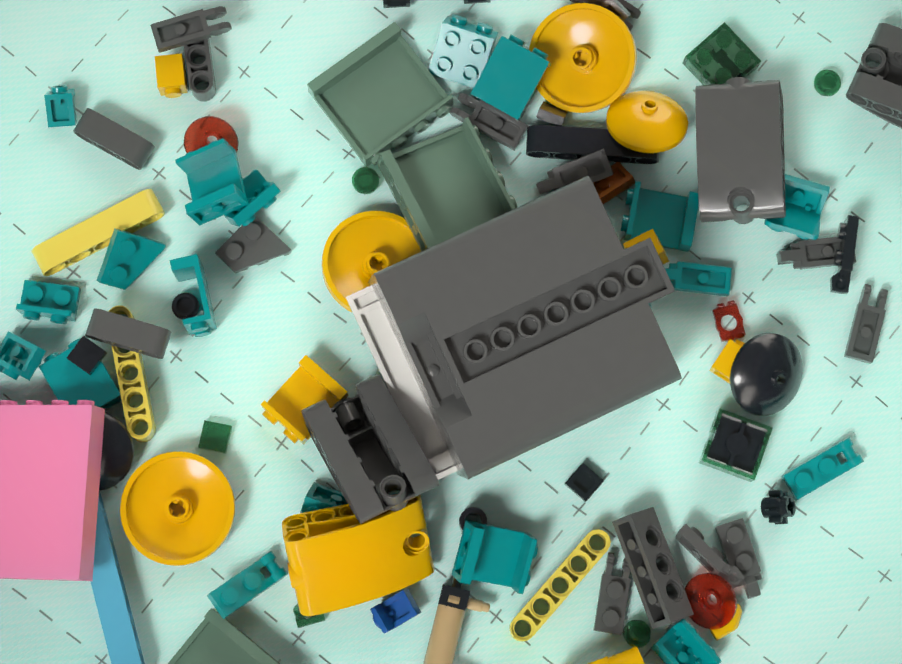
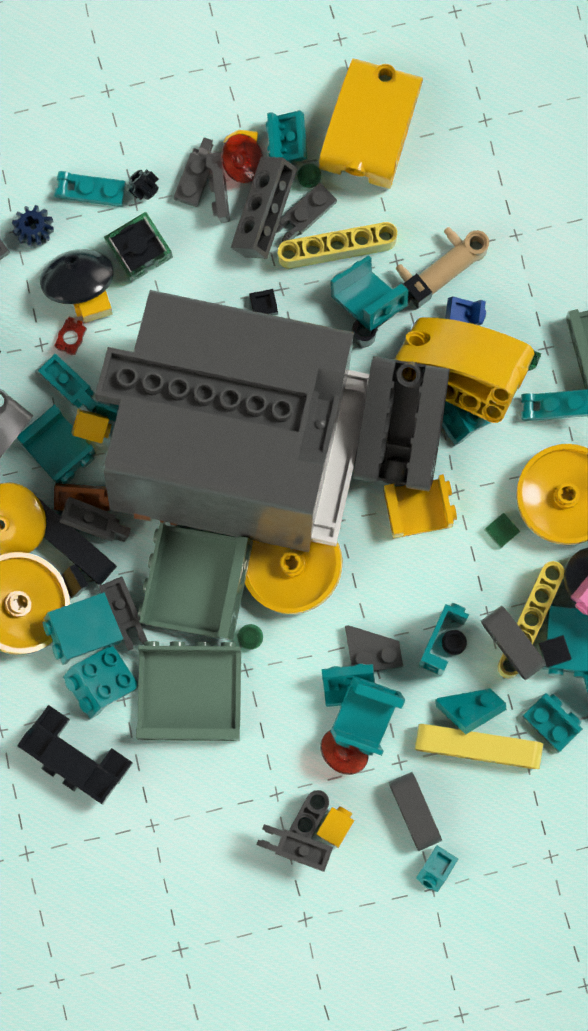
camera: 135 degrees left, 0 degrees up
(848, 404) = (30, 235): none -> dark blue gear

